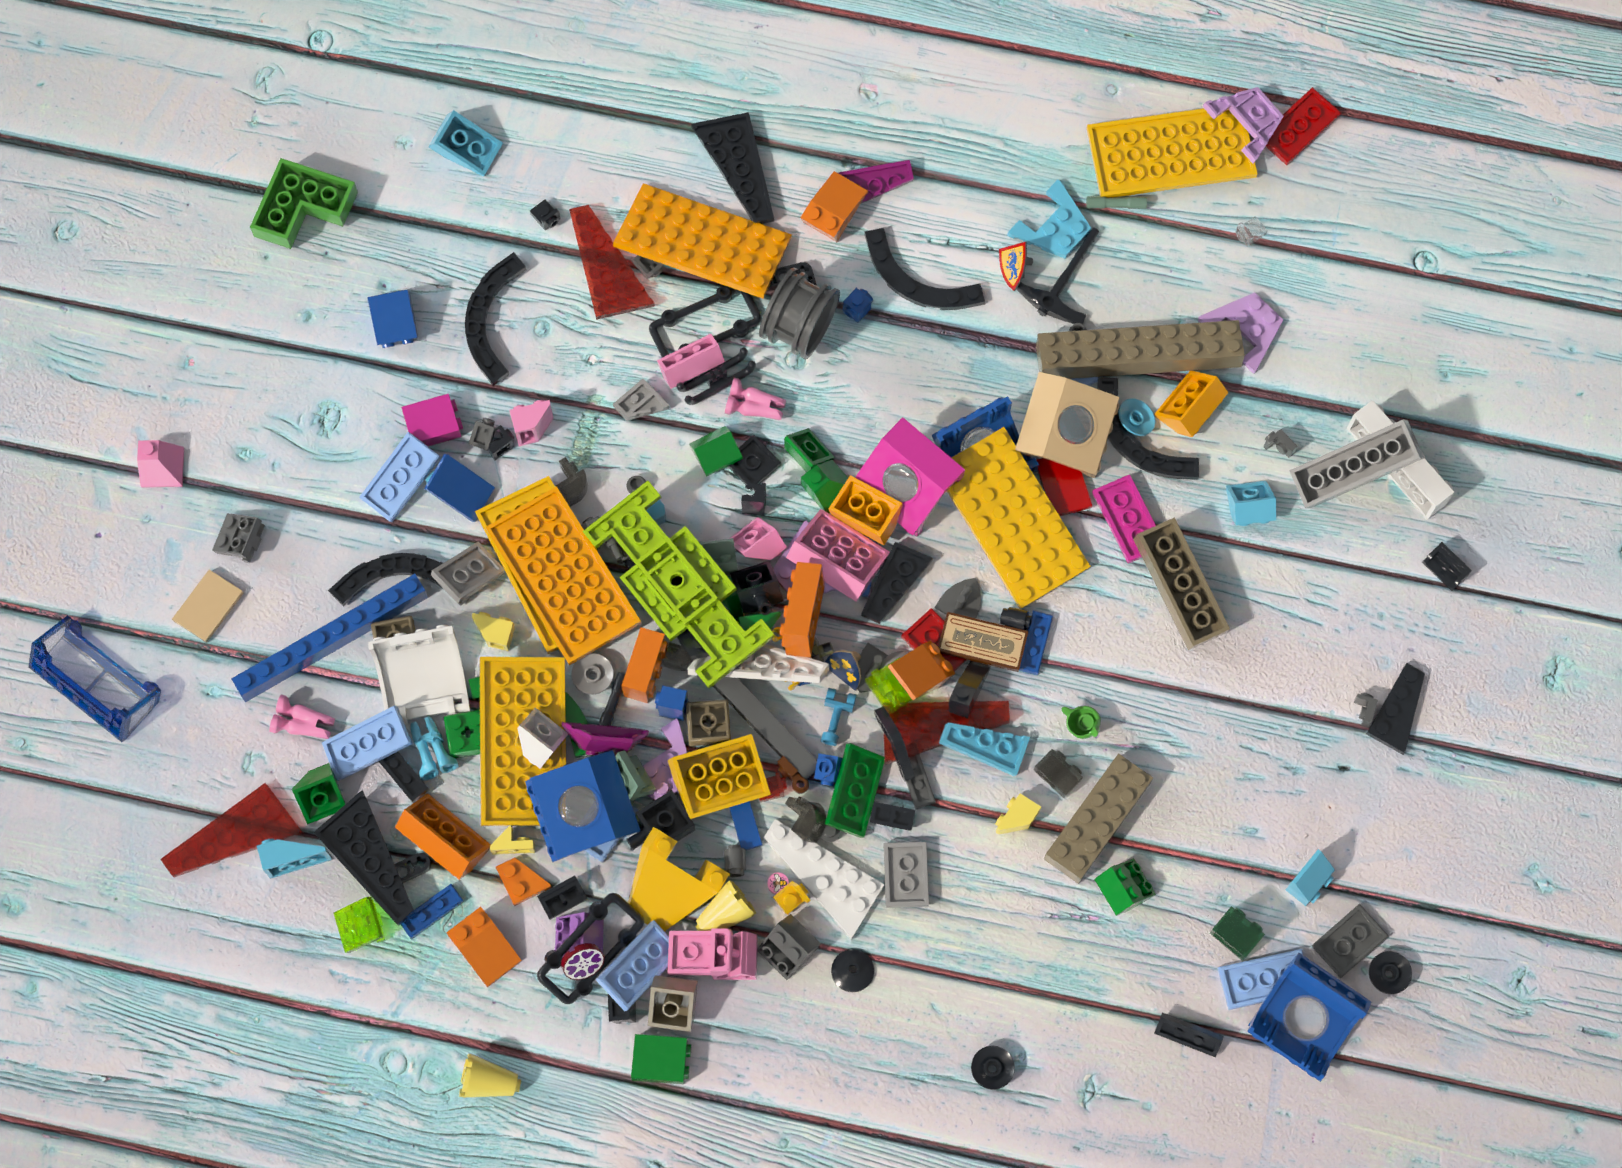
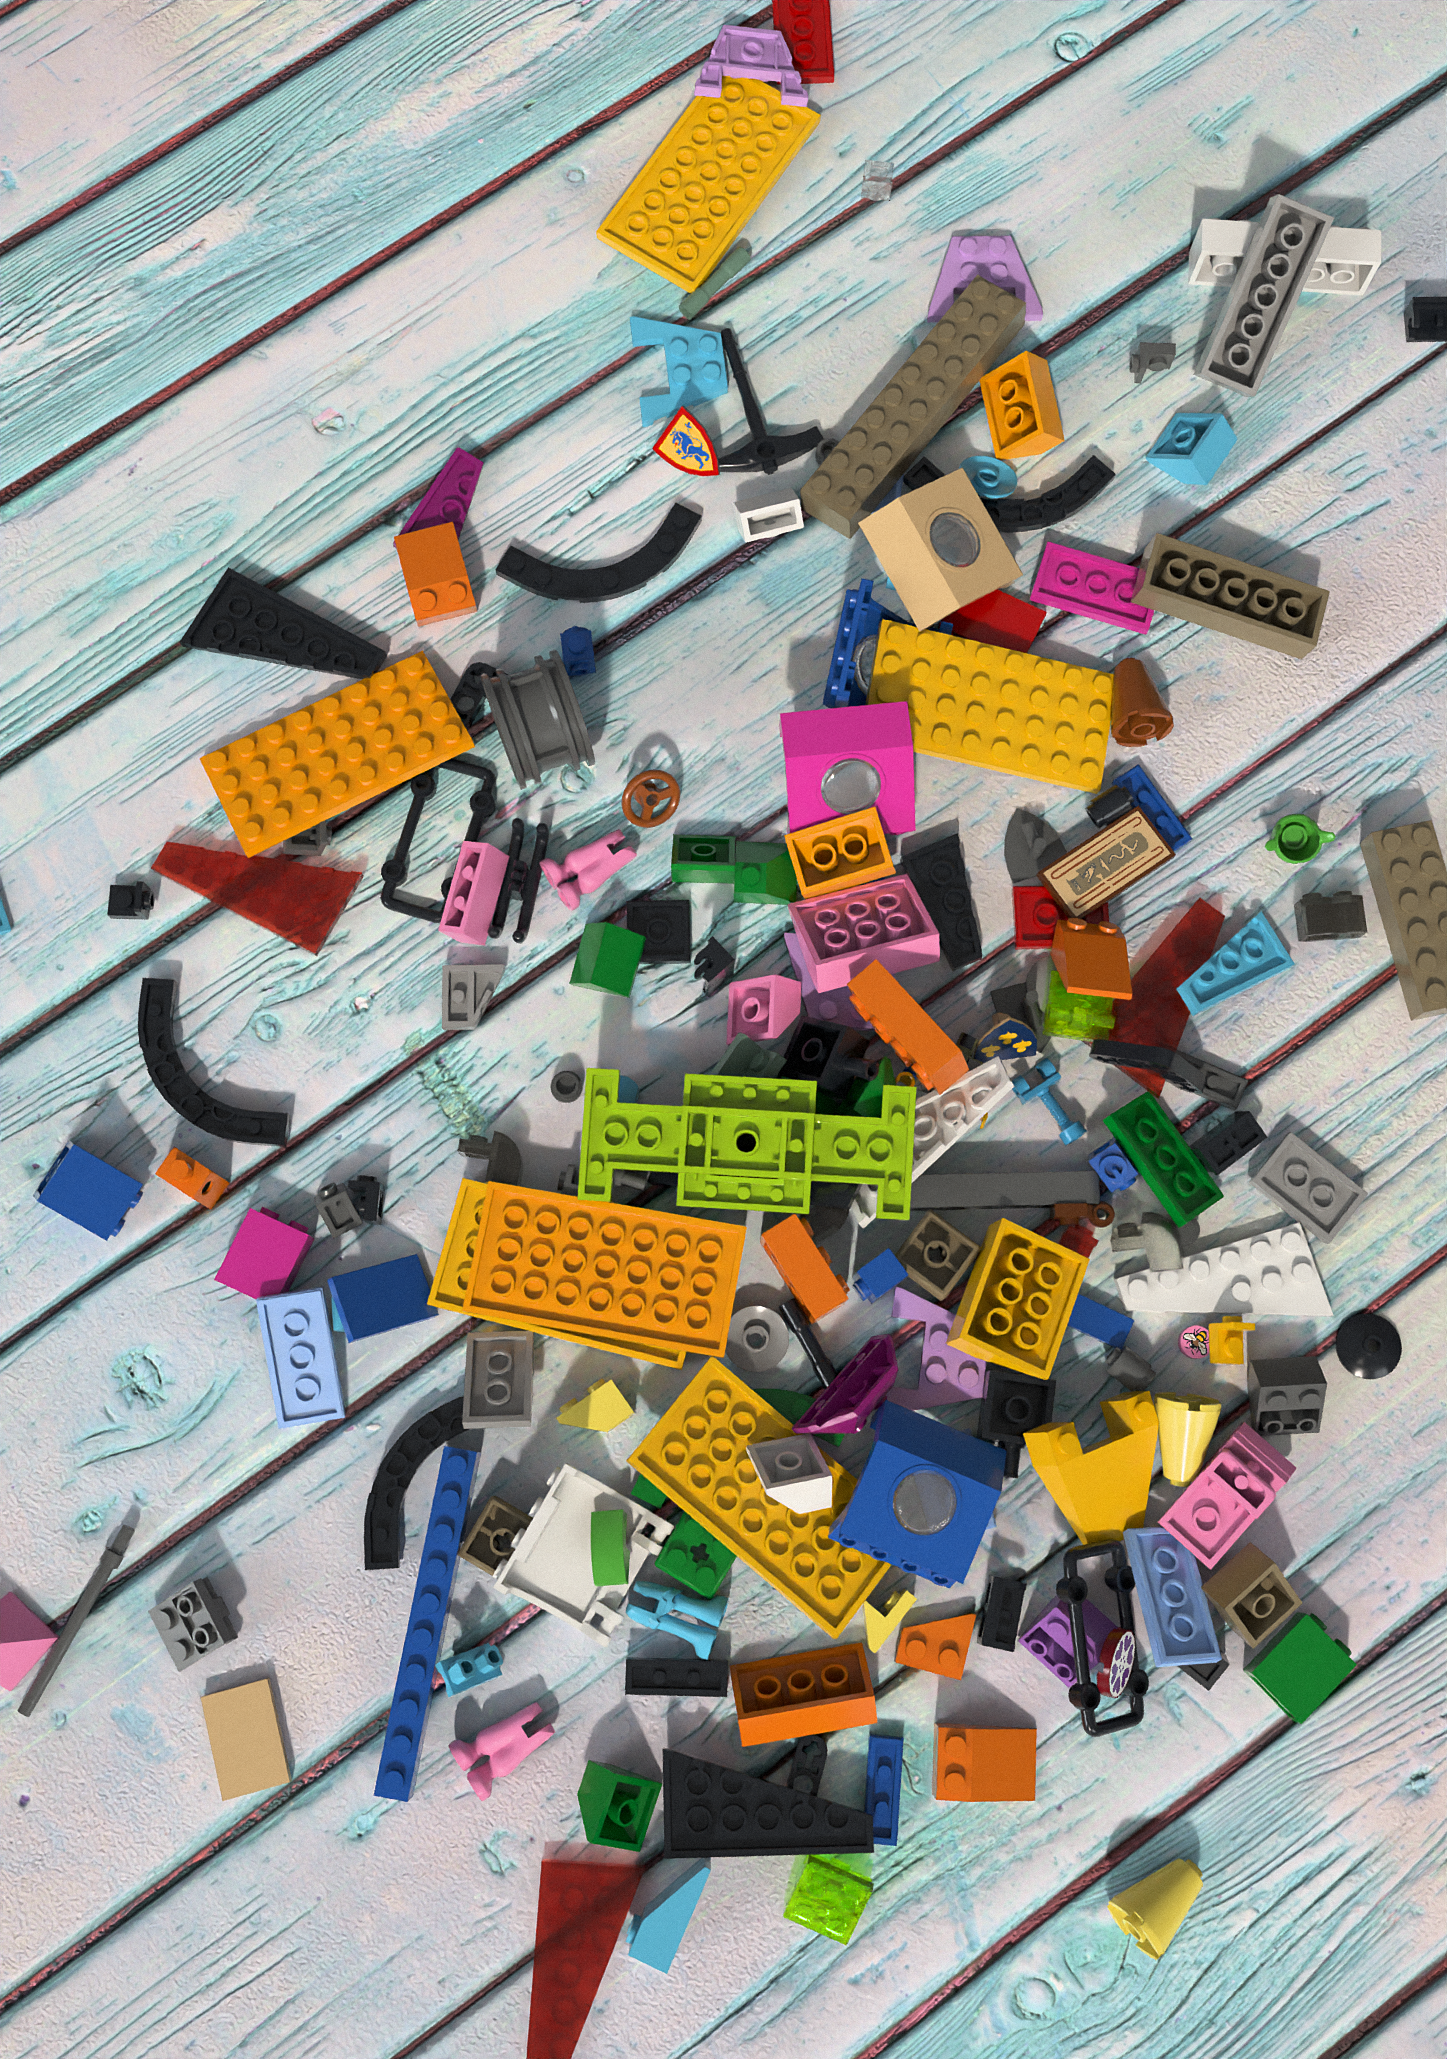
camera: 50 degrees left, 5 degrees up
(92, 679) = (208, 1974): windscreen -> none
(235, 476) = (110, 1560): none -> dark grey bar
(323, 674) = (470, 1668): none -> medium azure hips
(366, 743) = (605, 1690): light blue tile -> none
(431, 689) = (608, 1548): none -> bright green slope
(439, 353) = (191, 1178): none -> orange torso
(531, 421) = (377, 1141): bright pink slope -> none
(634, 776) = (933, 1399): sand green bracket -> none
(816, 391) = (641, 788): none -> dark orange piece
(968, 689) = (1151, 928): black slope -> none
(1013, 331) = (768, 515): none -> white brick
(1019, 816) = (1344, 1003): light yellow slope -> none
(1081, 587) = (1137, 706): none -> dark orange cone

